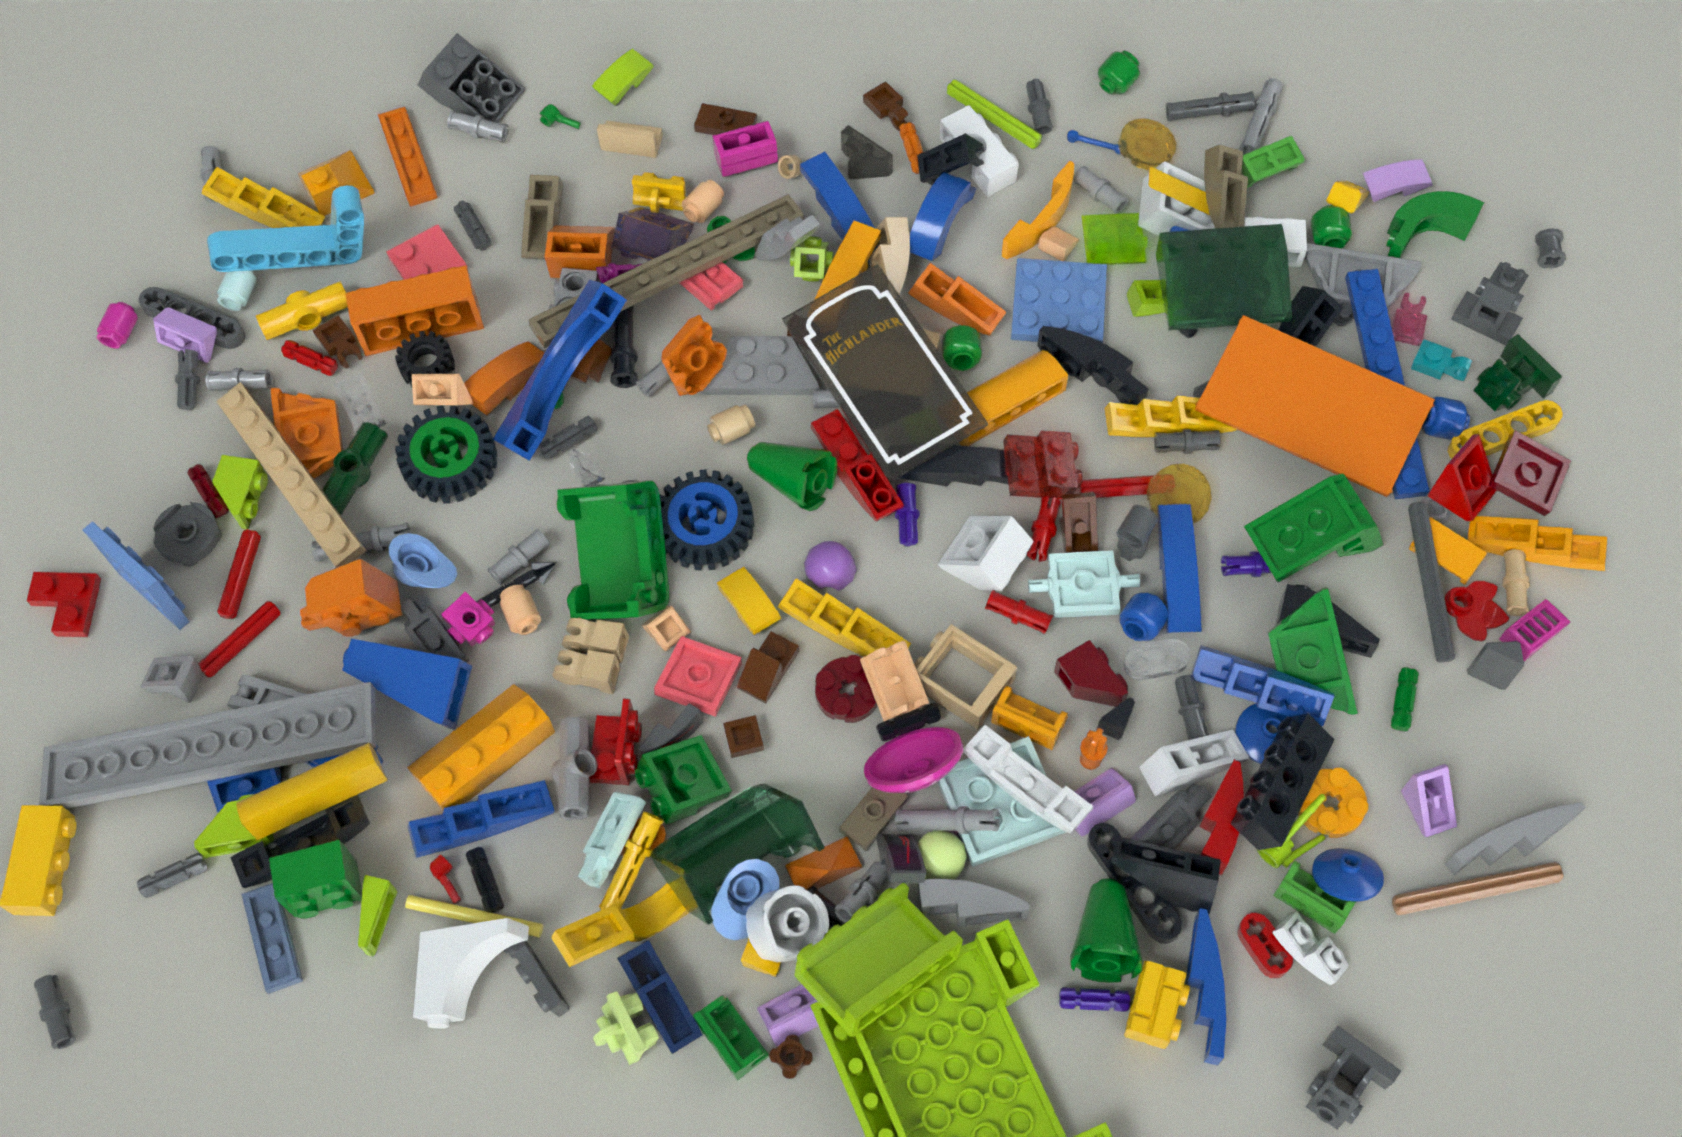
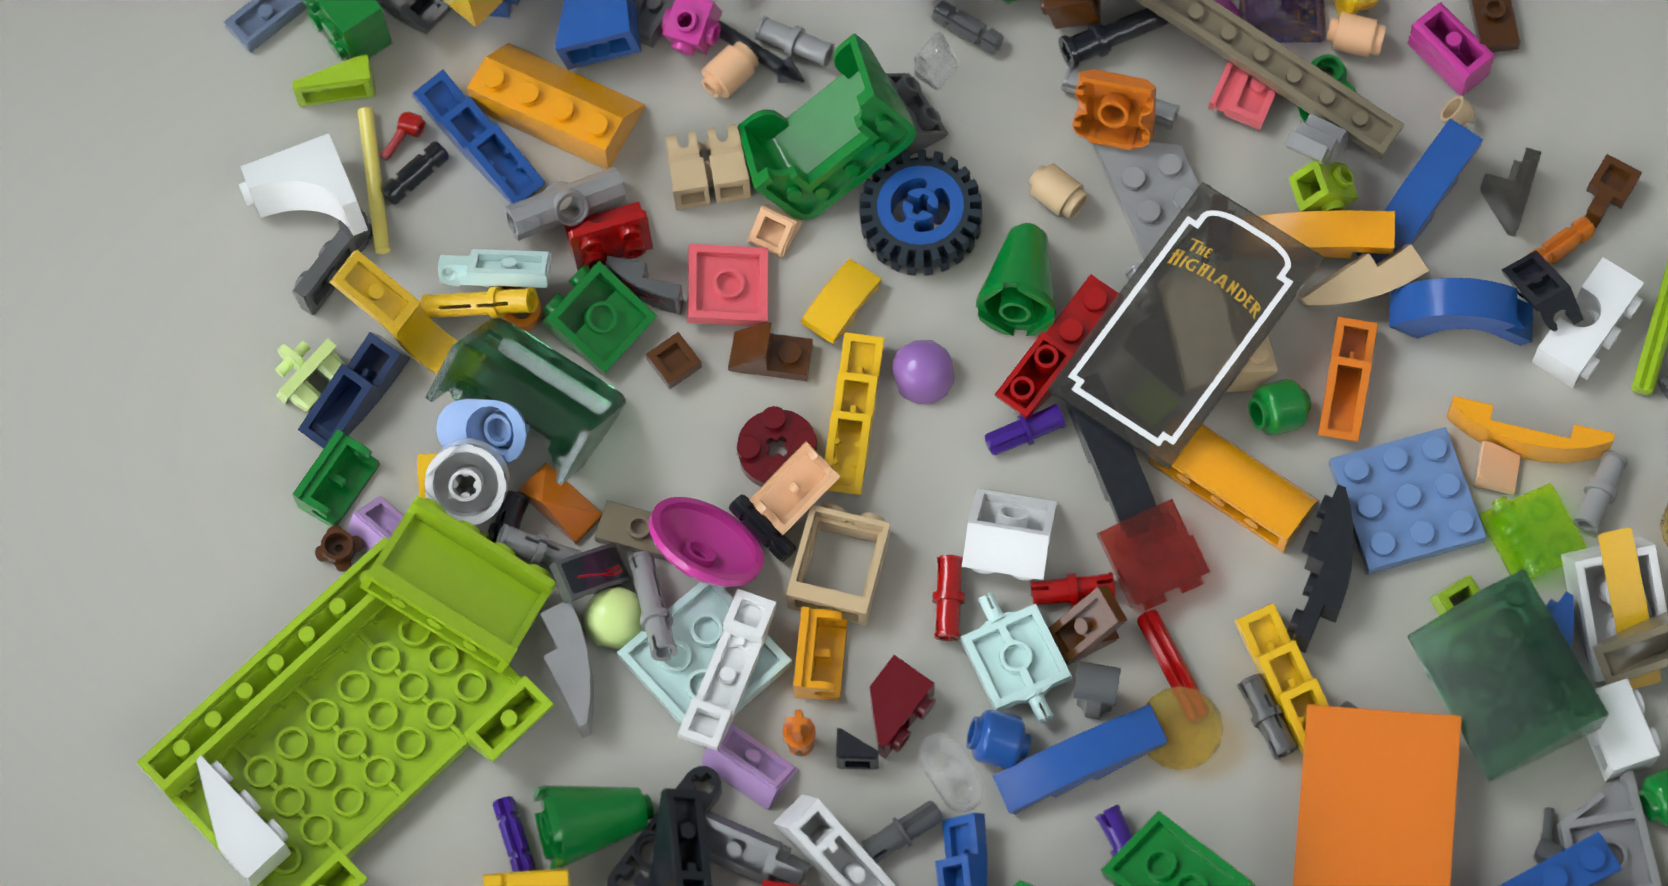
camera: 70 degrees right, 5 degrees up
(1311, 315) = (1504, 806): black slope -> none

